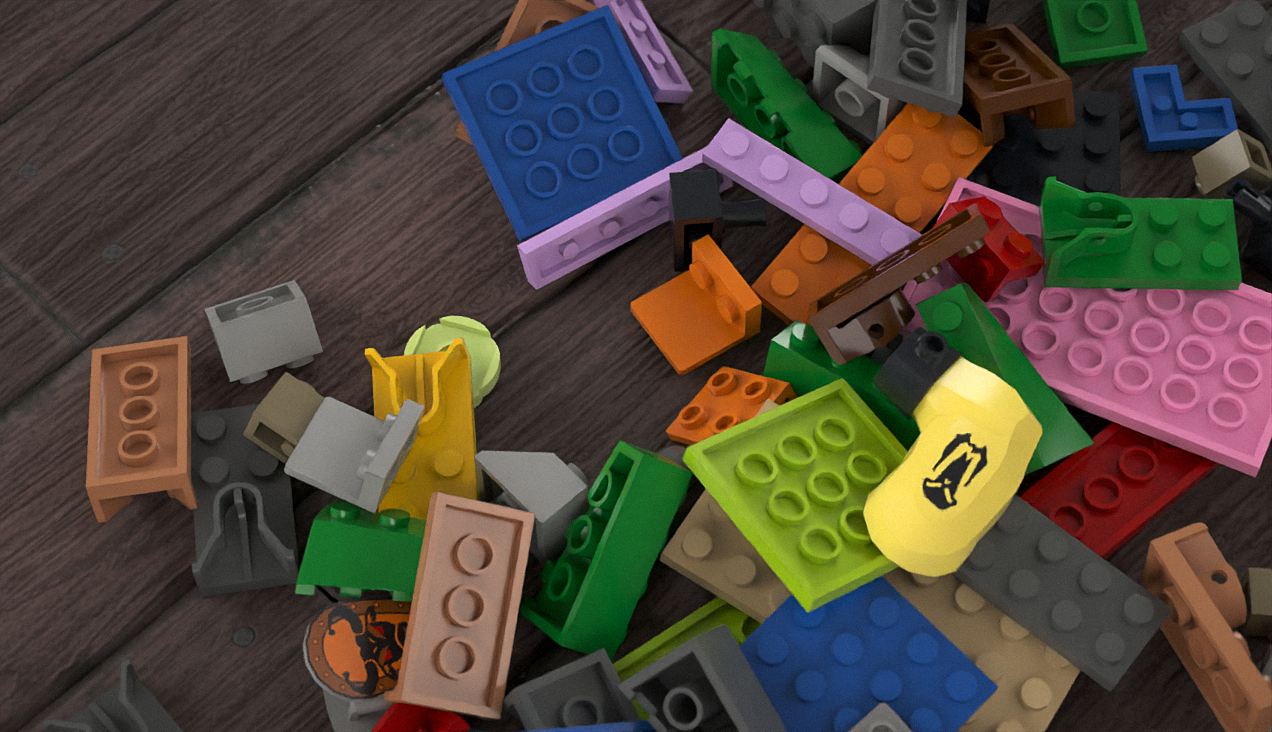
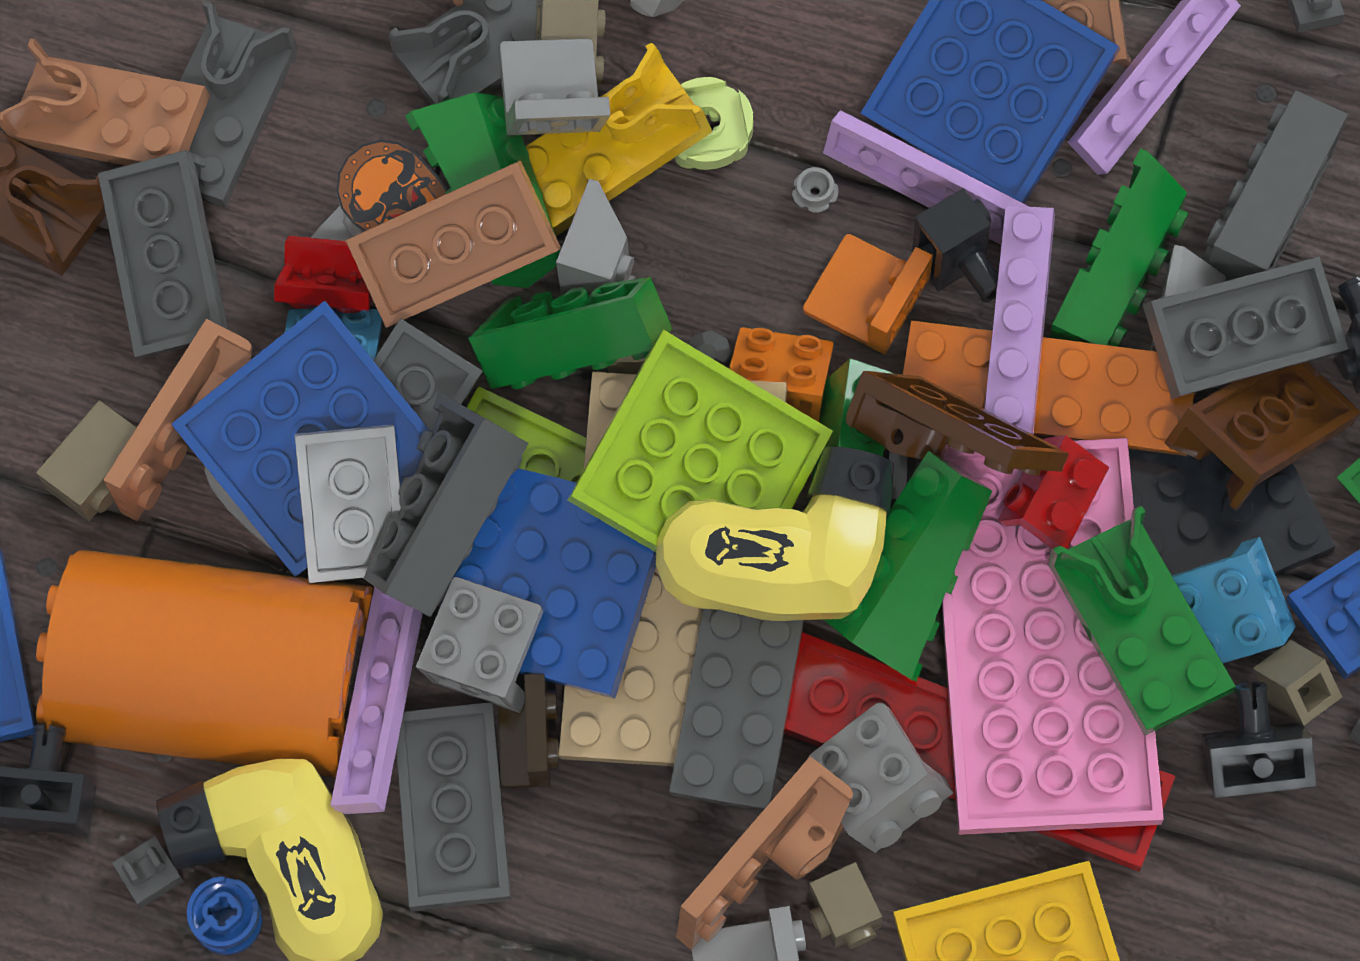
camera: 65 degrees right, 10 degrees up
(567, 299) = (819, 179): none -> light grey plate
(1145, 167) = (1238, 602): none -> dark azure bracket
(1166, 498) = (886, 778): none -> light grey bracket

